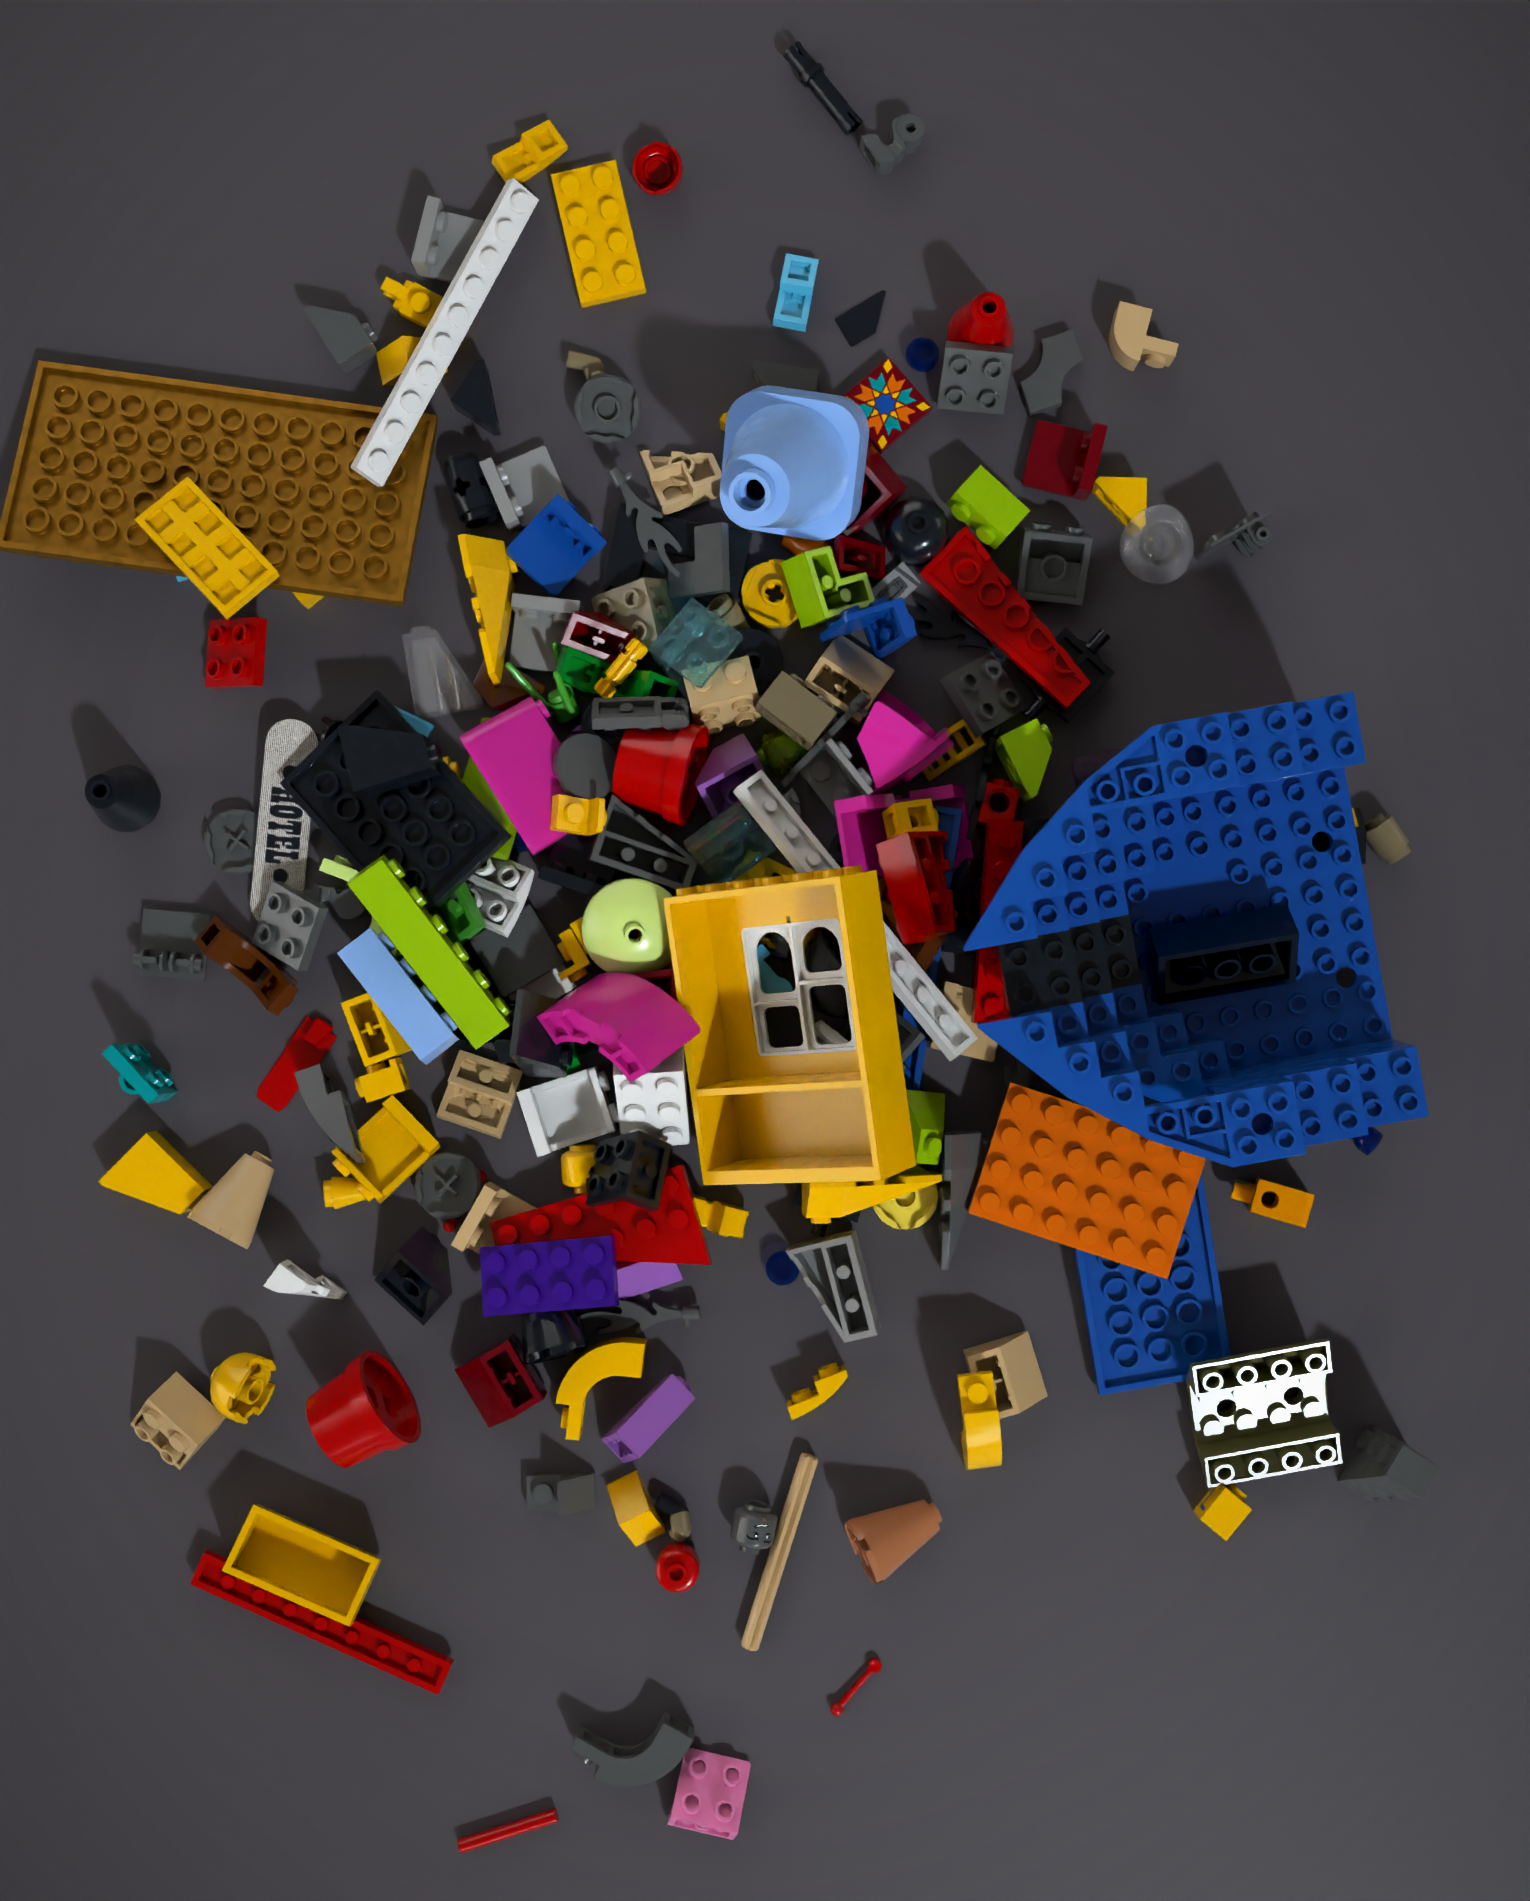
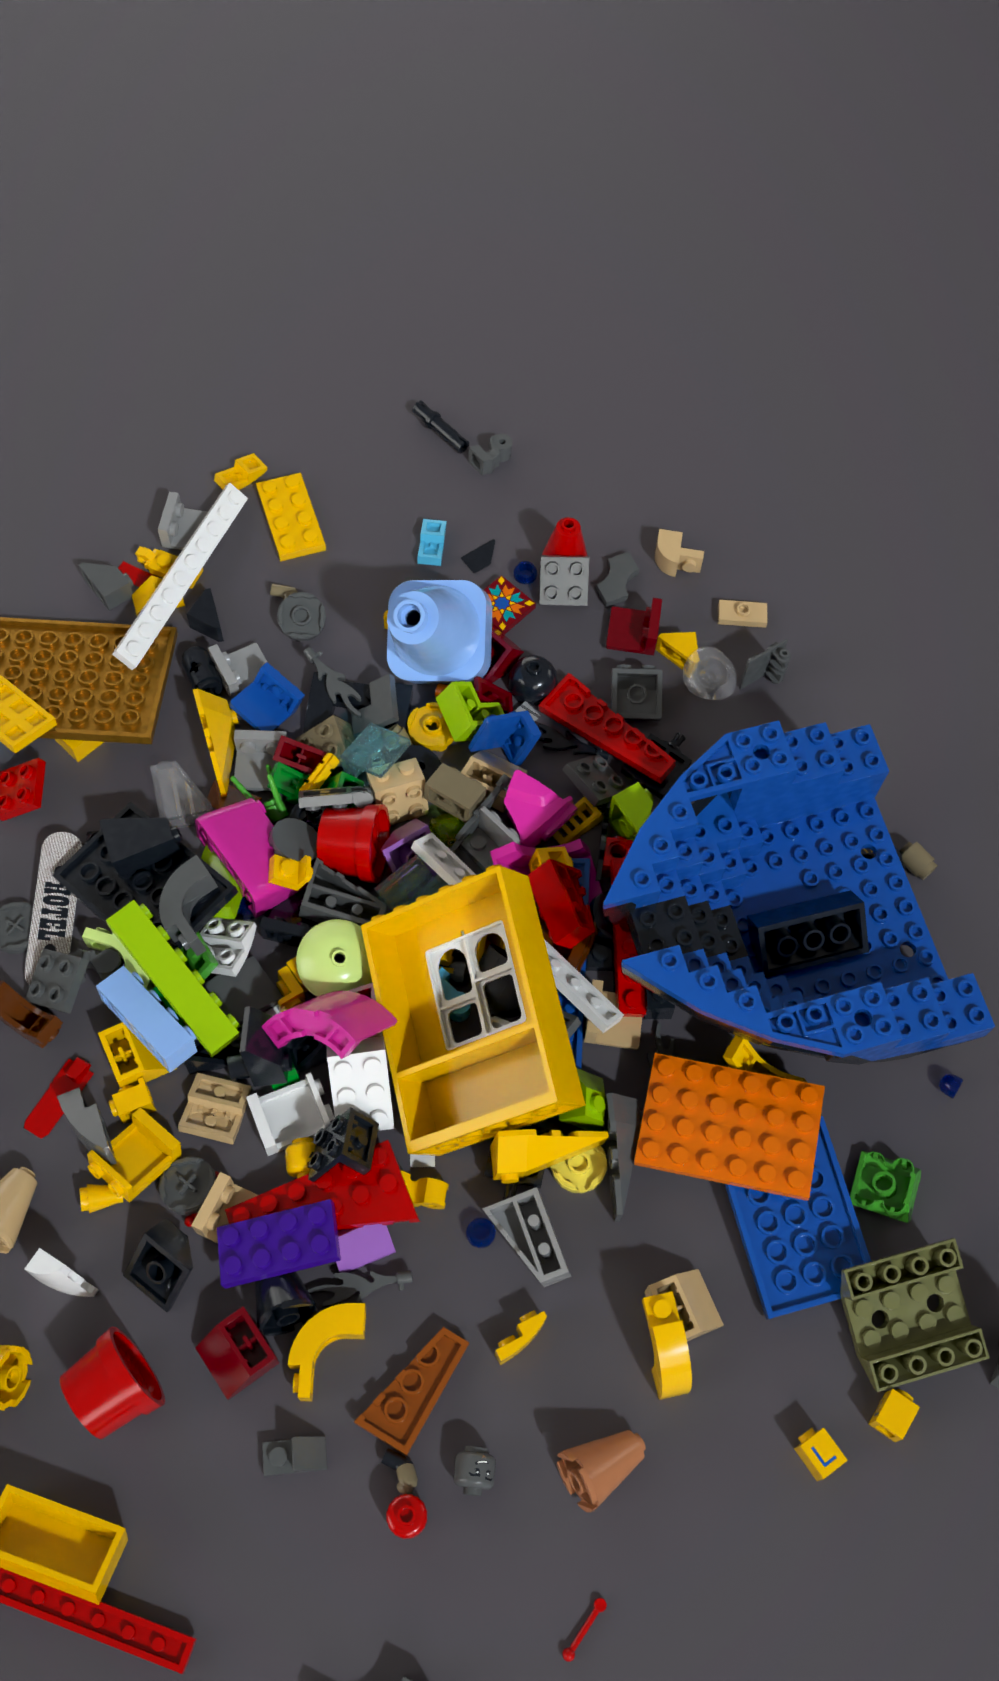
camera: 10 degrees left, 25 degrees down
(383, 319) = (137, 575): none -> red sticker
(435, 853) = (179, 897): none -> dark grey arch
(635, 1509) = (365, 1468): yellow slope -> none
(649, 1418) = (370, 1376): medium lavender slope -> none
(658, 168) = (330, 474): red hair -> none
(682, 479) = (359, 658): tan slope -> none
(695, 1437) = (409, 1400): none -> dark orange wing
(779, 1552) = (499, 1499): tan axle -> none
(987, 507) = (583, 659): lime brick -> none
(1132, 1542) = (819, 1453): none -> yellow brick
(1218, 441) = (742, 613): none -> tan plate
(1262, 1254) = (885, 1185): none -> bright green slope
(1289, 1203) = (888, 1135): light orange torso -> none

